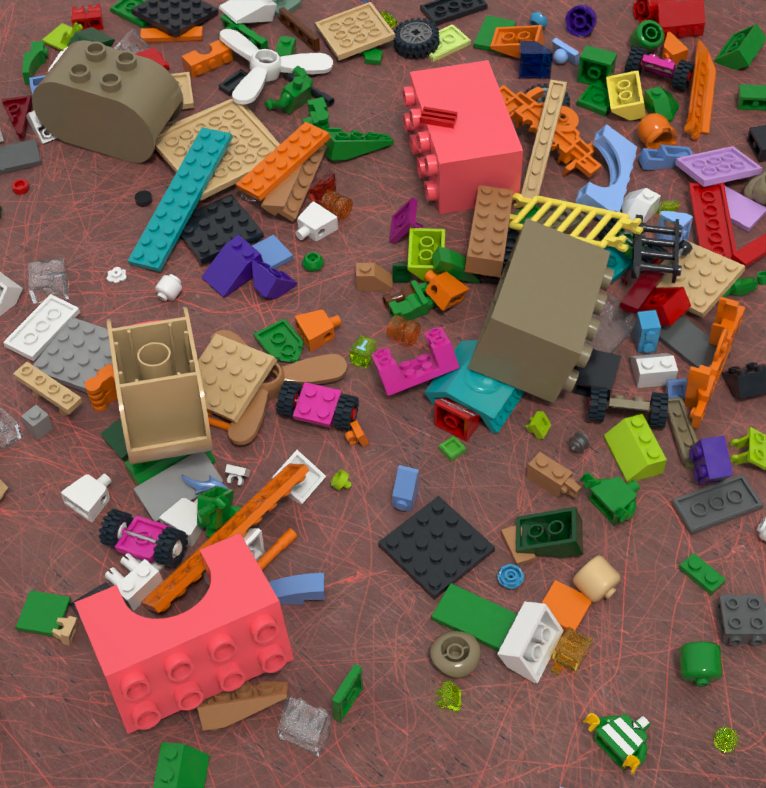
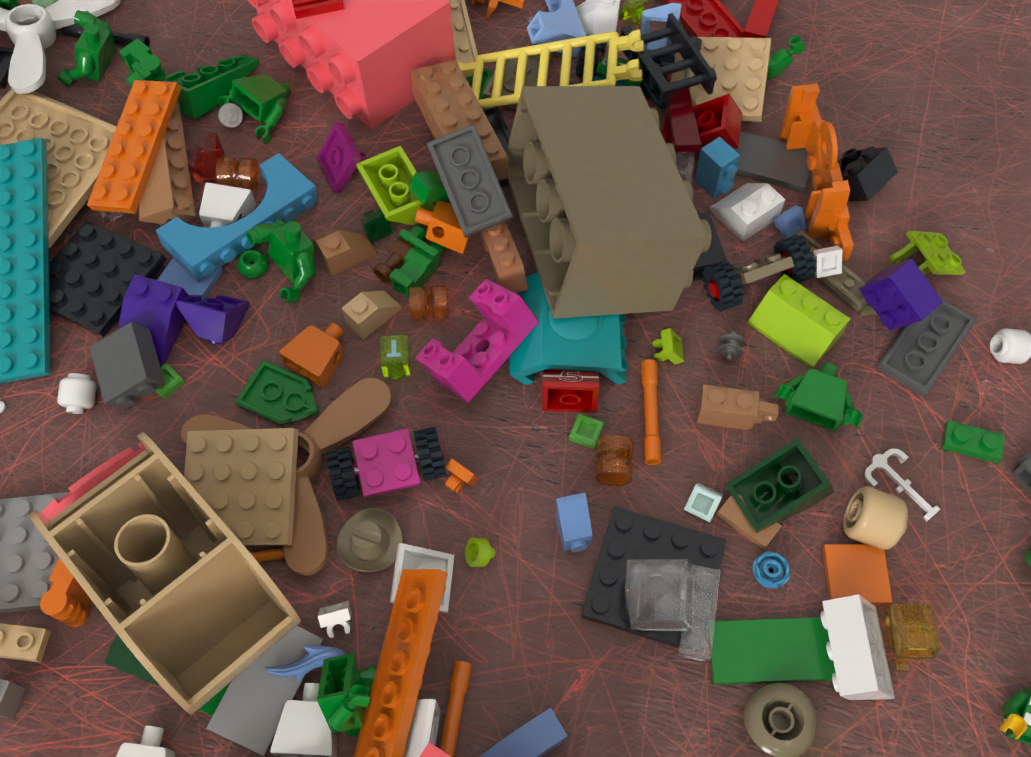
camera: 30 degrees left, 10 degrees up
(204, 284) = (127, 365): none -> dark grey brick
(221, 305) = (172, 382): none -> bright green tile
(282, 443) = (369, 540): none -> dark tan hat
(291, 240) = (207, 249): none -> dark azure arch
(338, 263) = (290, 252): none -> green torso
(354, 168) = (230, 115): none -> flat silver wheel
(364, 319) = (369, 311): none -> tan slope
(379, 166) = (261, 99): none -> green torso
(428, 547) = (660, 594): none -> clear slope
(447, 573) = (699, 642): none -> clear plate
(455, 470) = (614, 460): none -> clear orange wheel
(461, 325) = (504, 258): none -> nougat arch
(468, 265) = (469, 180): none -> dark grey tile
(489, 472) = (652, 441): none -> orange piece
(496, 521) = (703, 502): none -> light aqua slope
(629, 555) = (880, 462): none -> white piece
(678, 420) = (828, 261): none -> white tile

